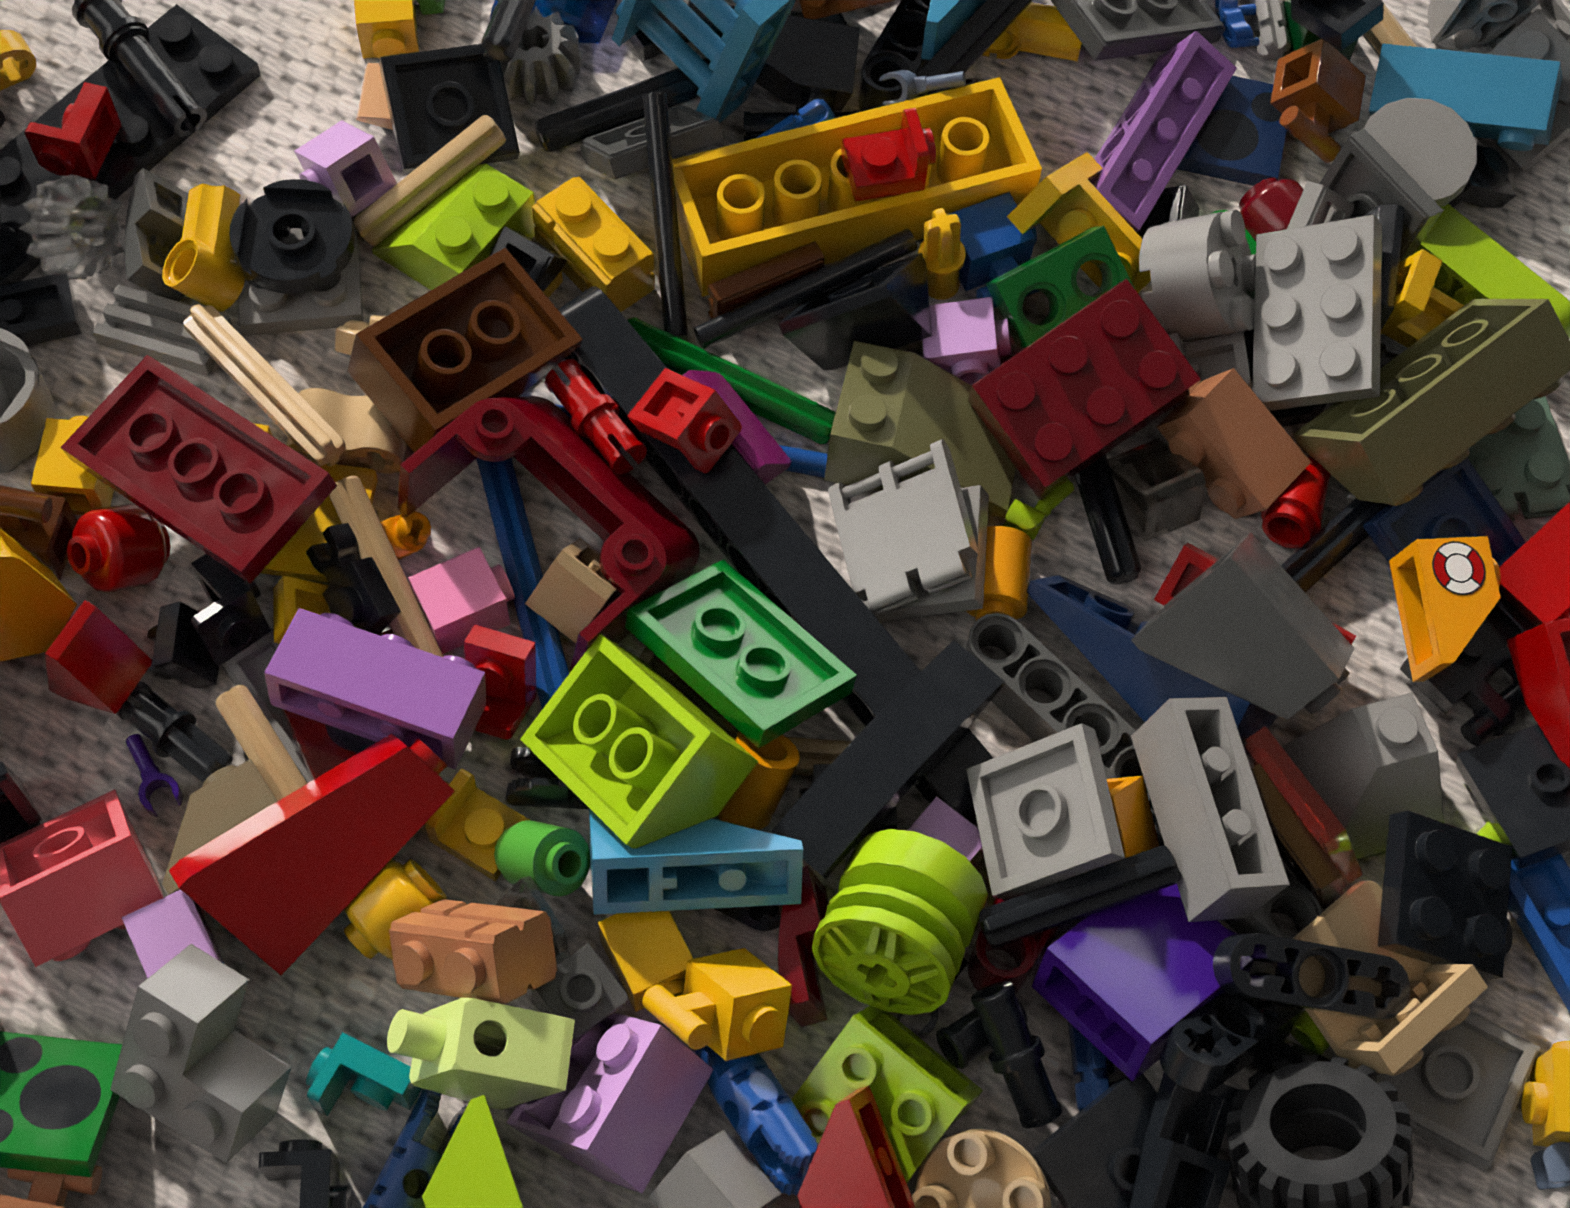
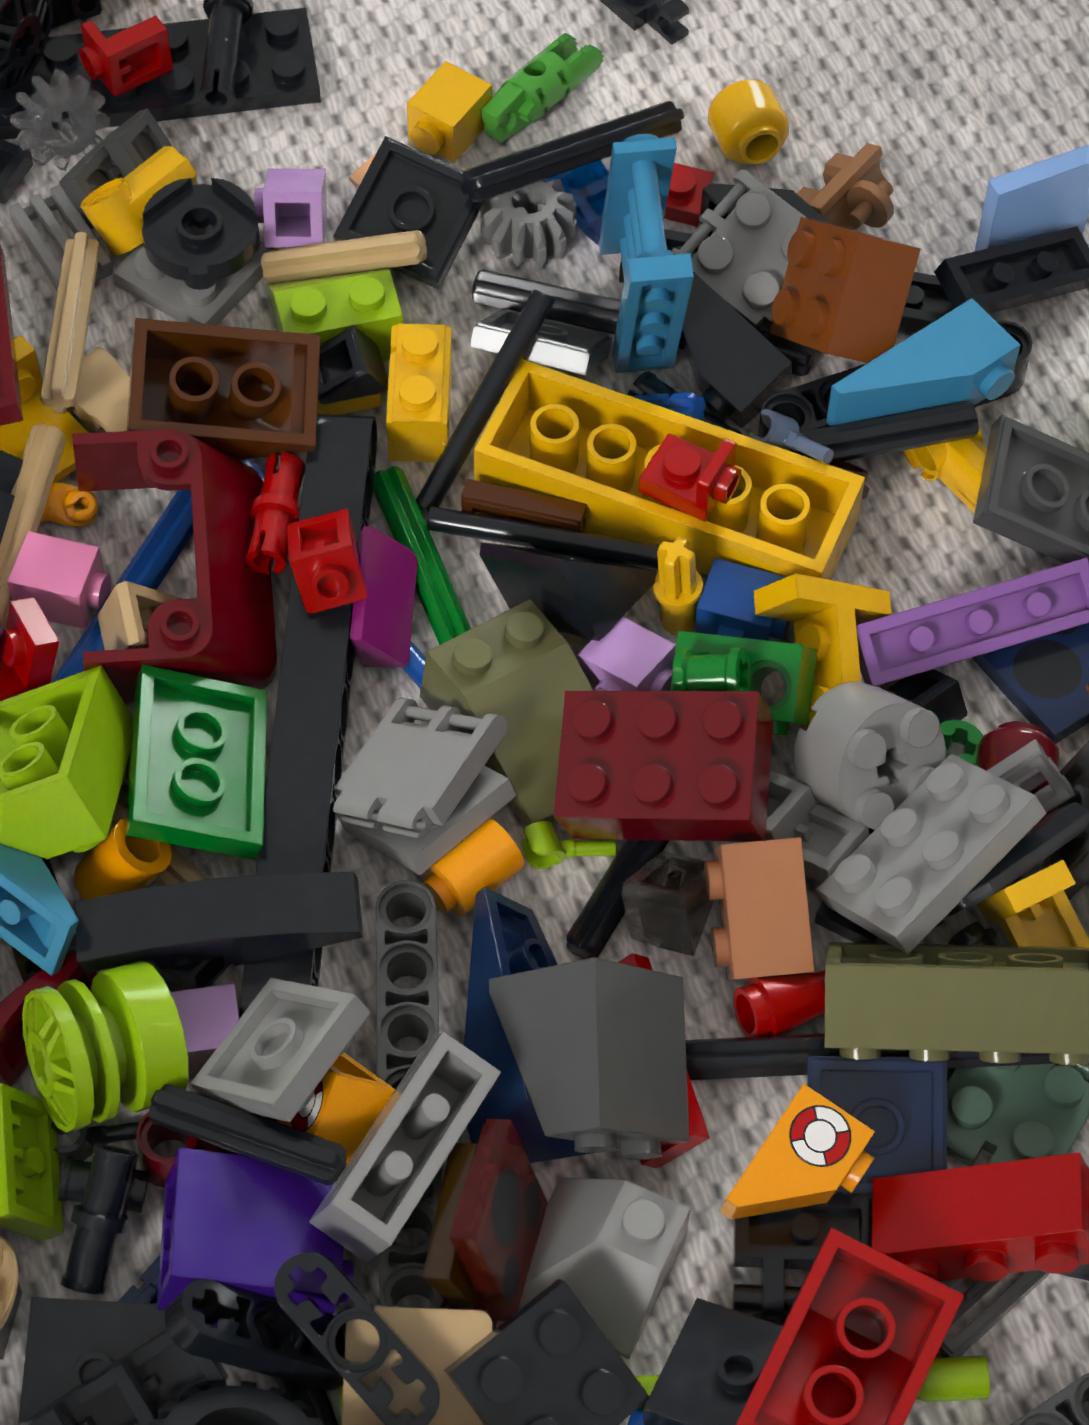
camera: 45 degrees right, 5 degrees down
(1060, 296) = (712, 671): none -> green bush

